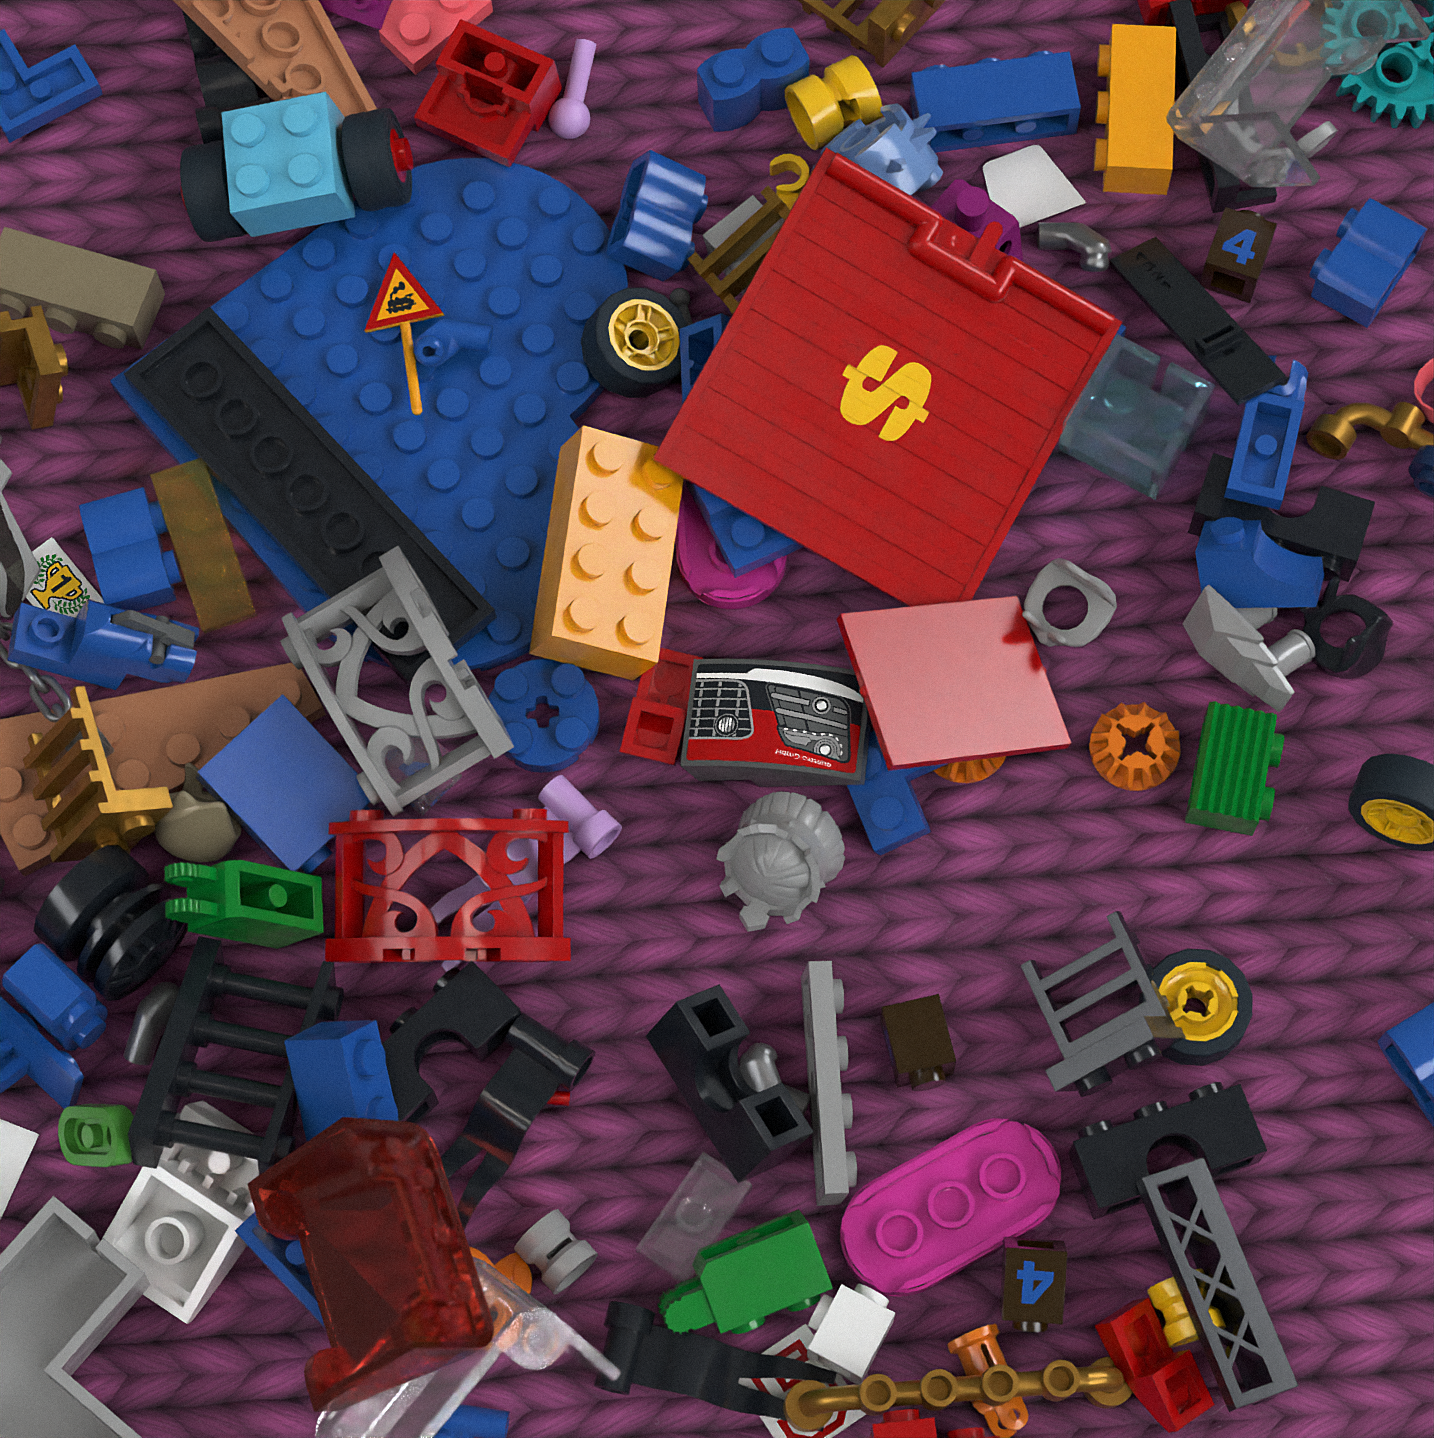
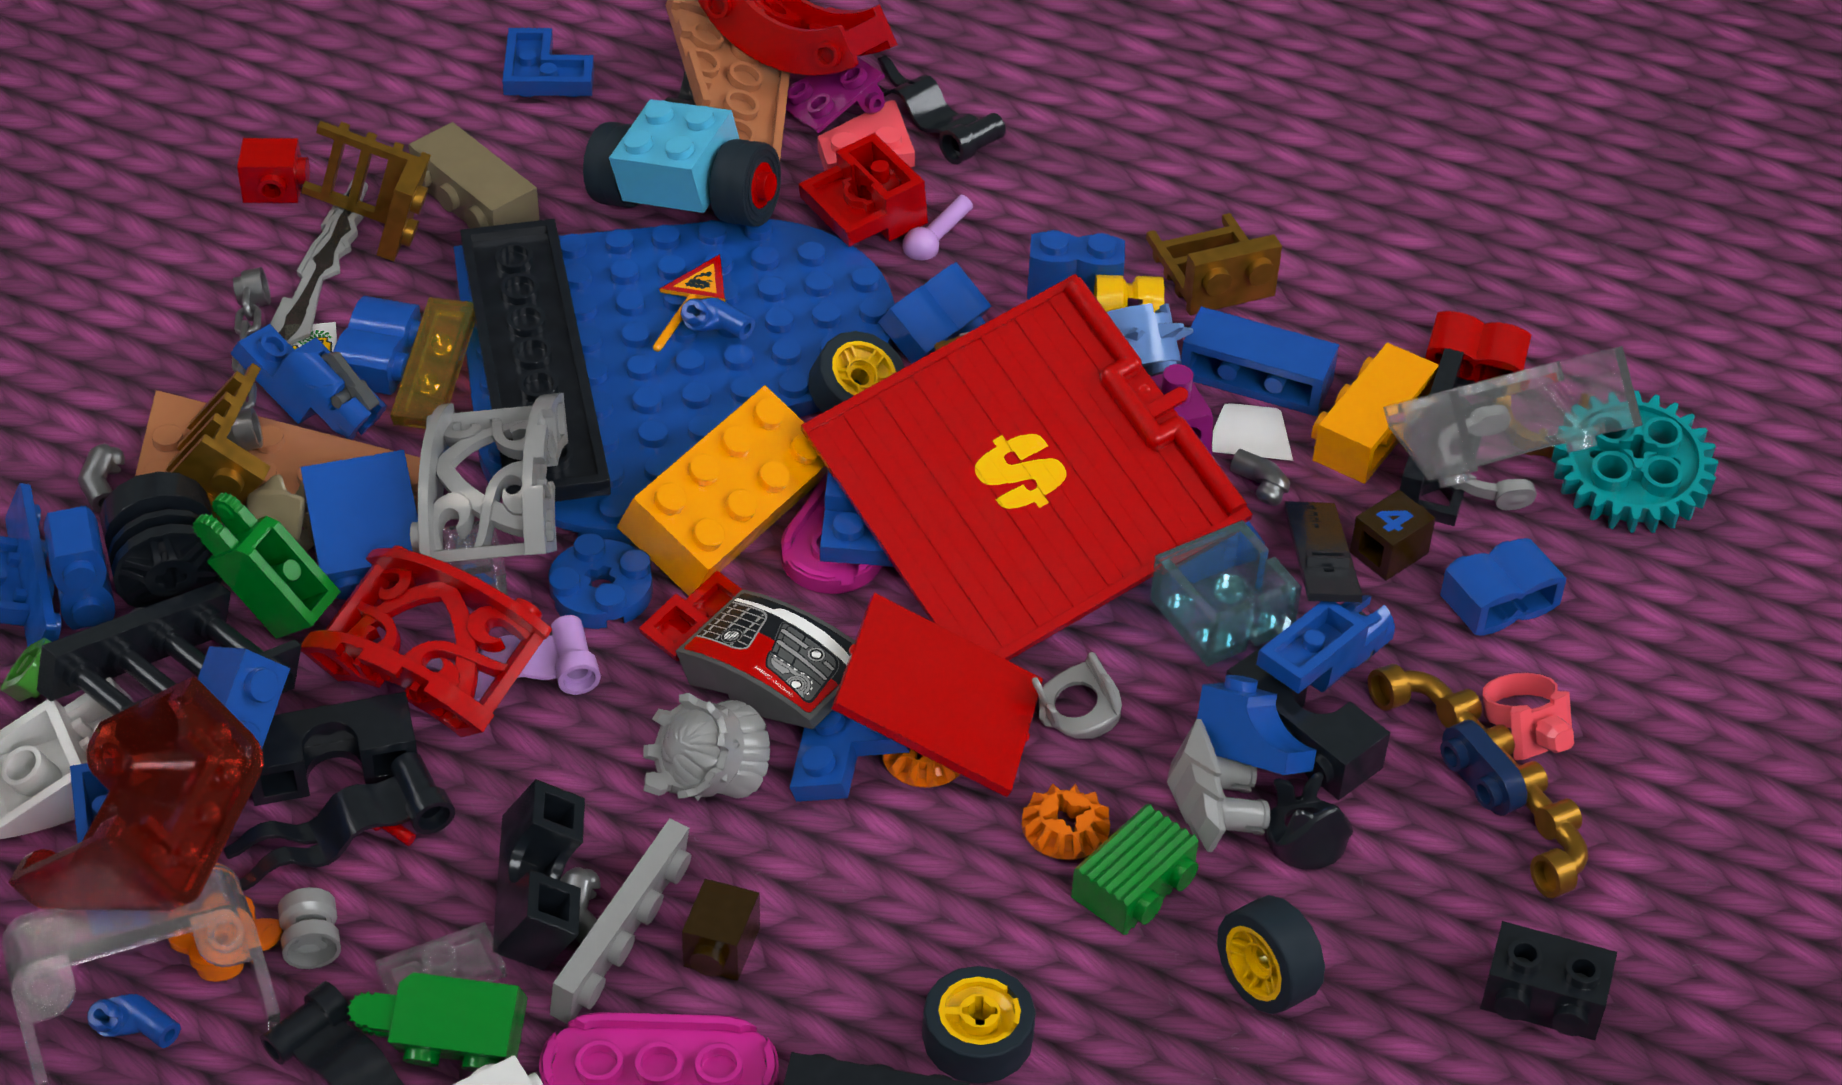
camera: 25 degrees right, 25 degrees down
(1121, 1043) = (889, 994): black plate -> none

